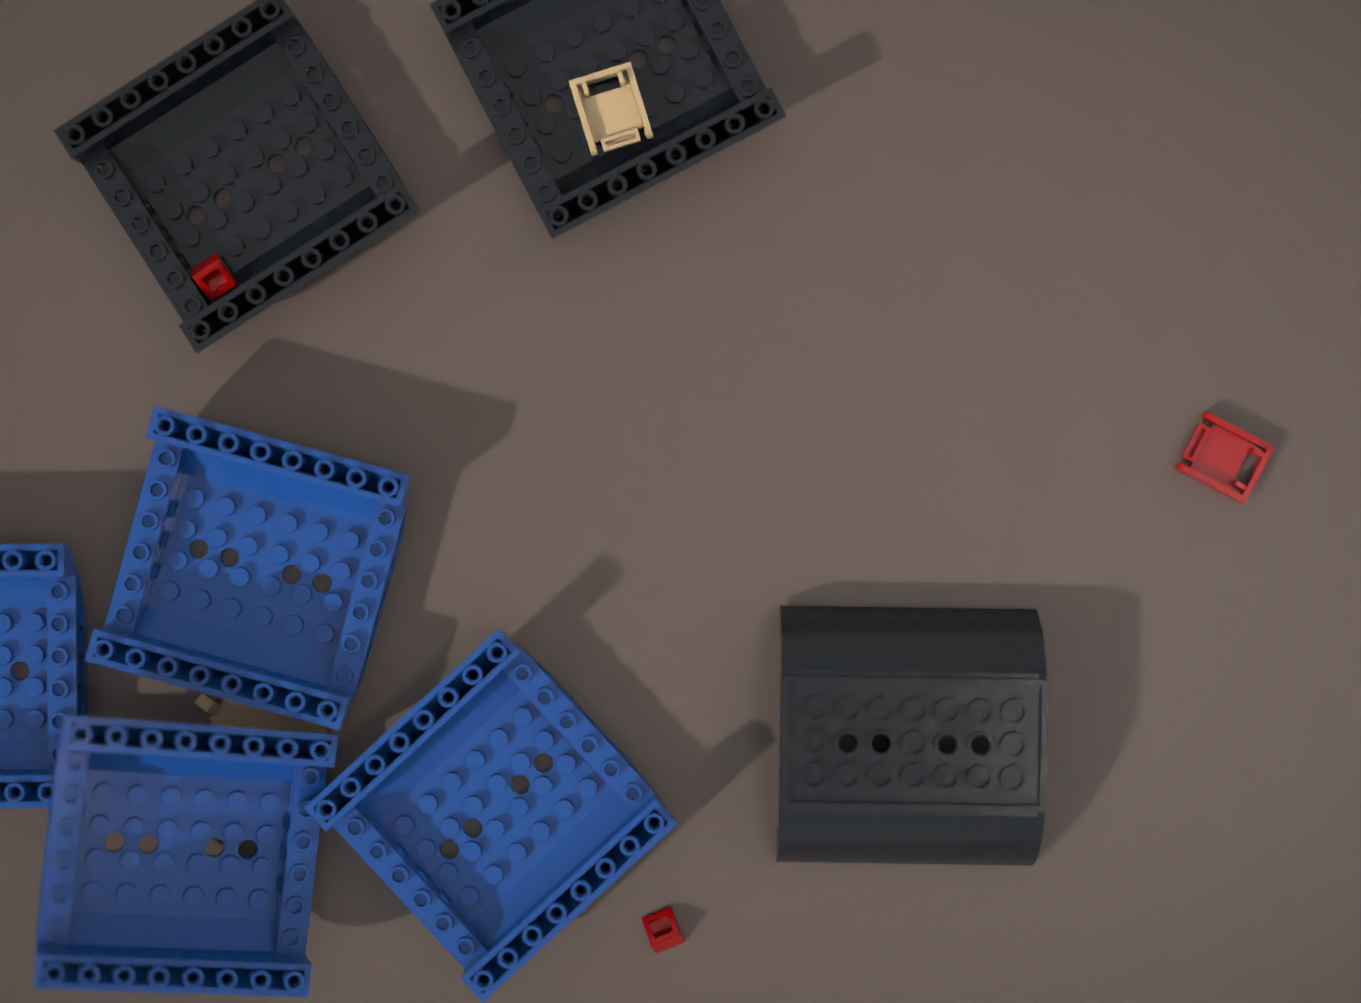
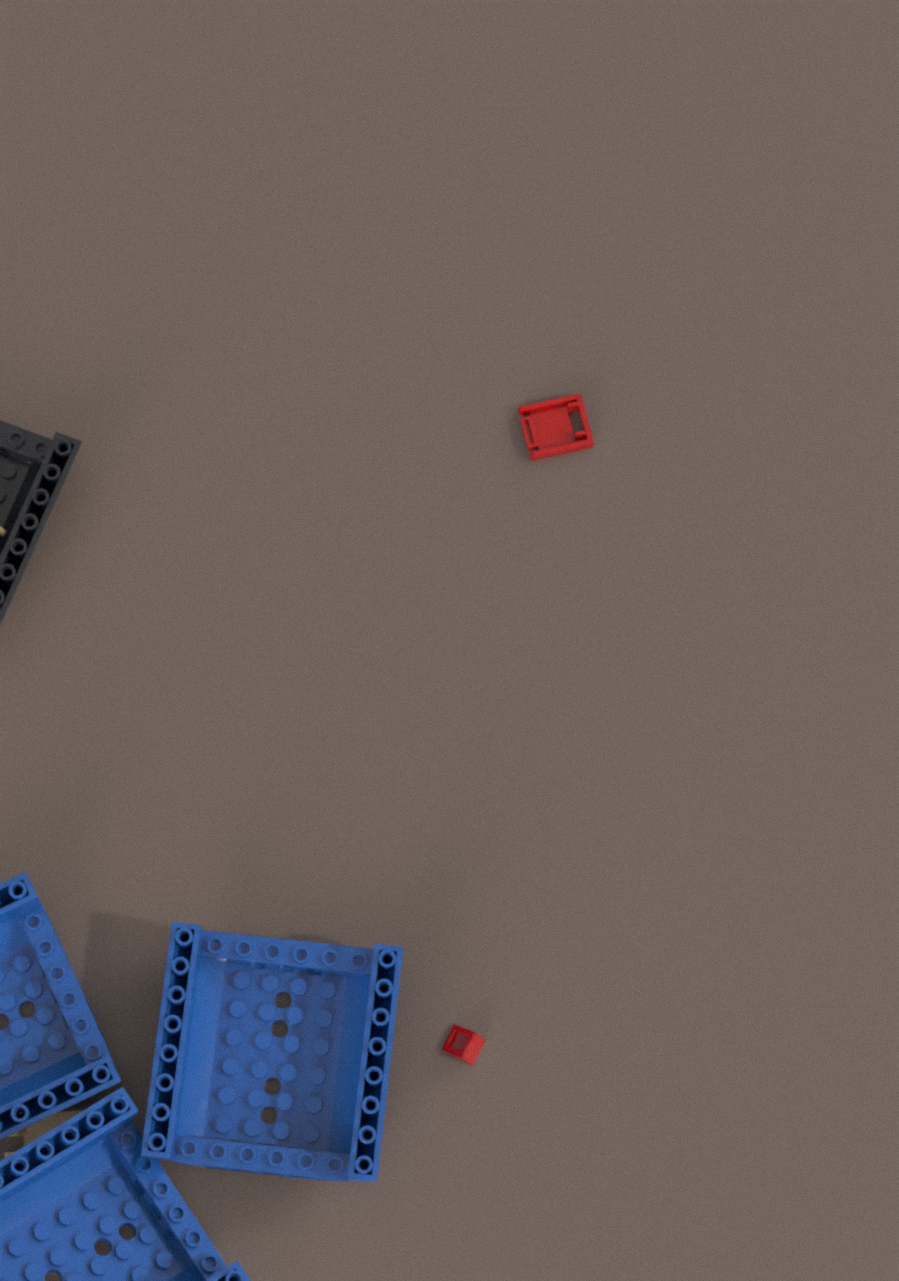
camera: 45 degrees left, 15 degrees down
(914, 681) = (548, 801): black slope -> none

